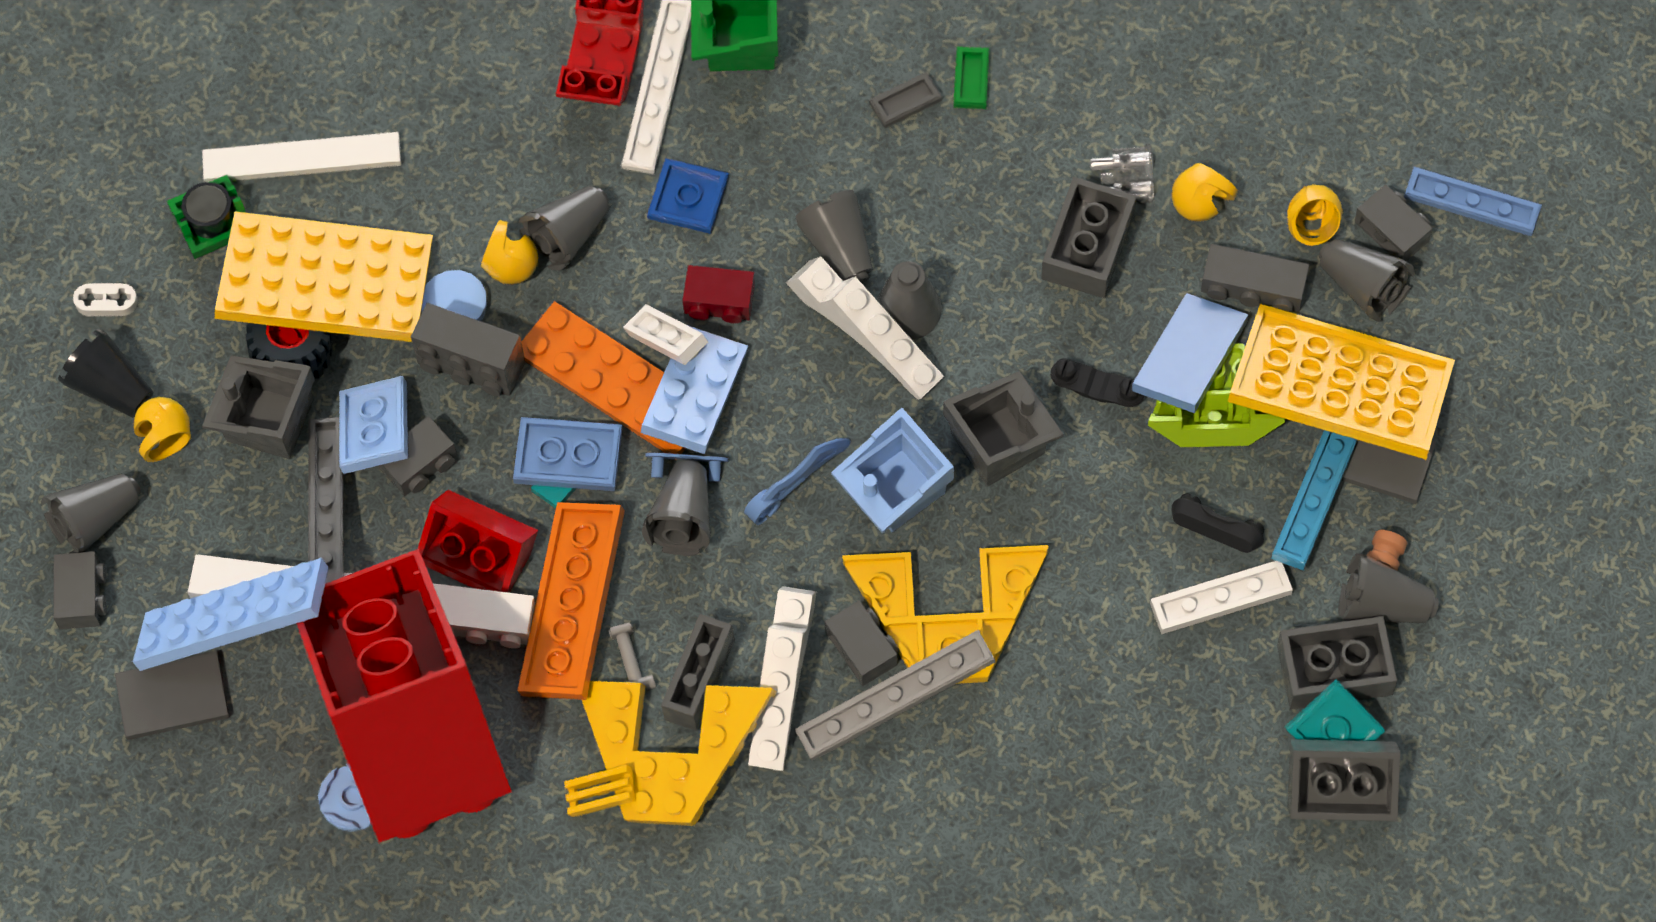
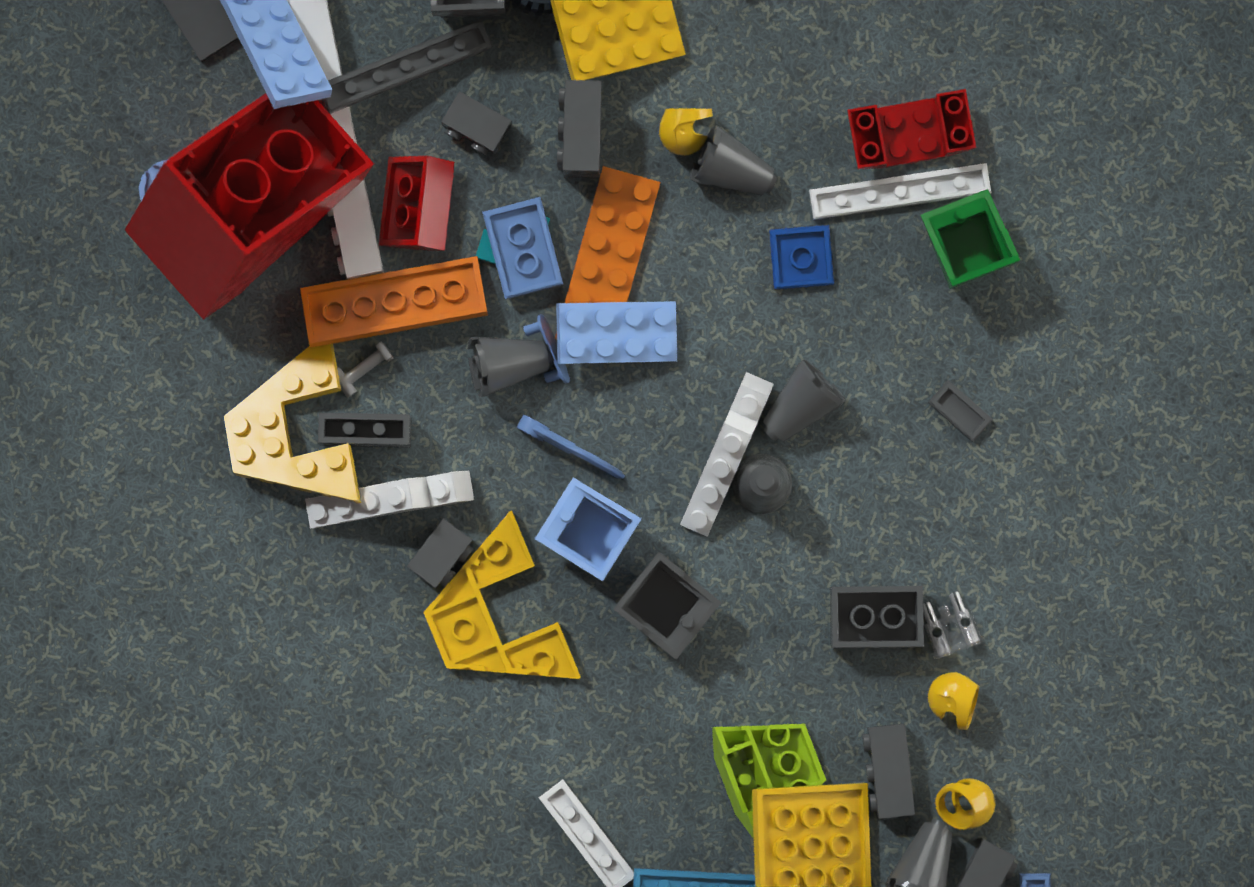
camera: 70 degrees right, 20 degrees up
(373, 424) = (489, 76): light blue tile -> none
(457, 293) = (631, 97): light blue tile -> none
(598, 778) = (229, 368): yellow tile -> none
(665, 334) = (654, 290): white plate -> none
(718, 293) = (714, 319): dark red brick -> none
(895, 695) = (403, 598): light grey tile -> none
(971, 77) = (1002, 460): green tile -> none
(1095, 383) = (745, 668): black piece -> none
(1190, 353) = (796, 739): tile -> none
(1227, 530) = (646, 825): black piece -> none

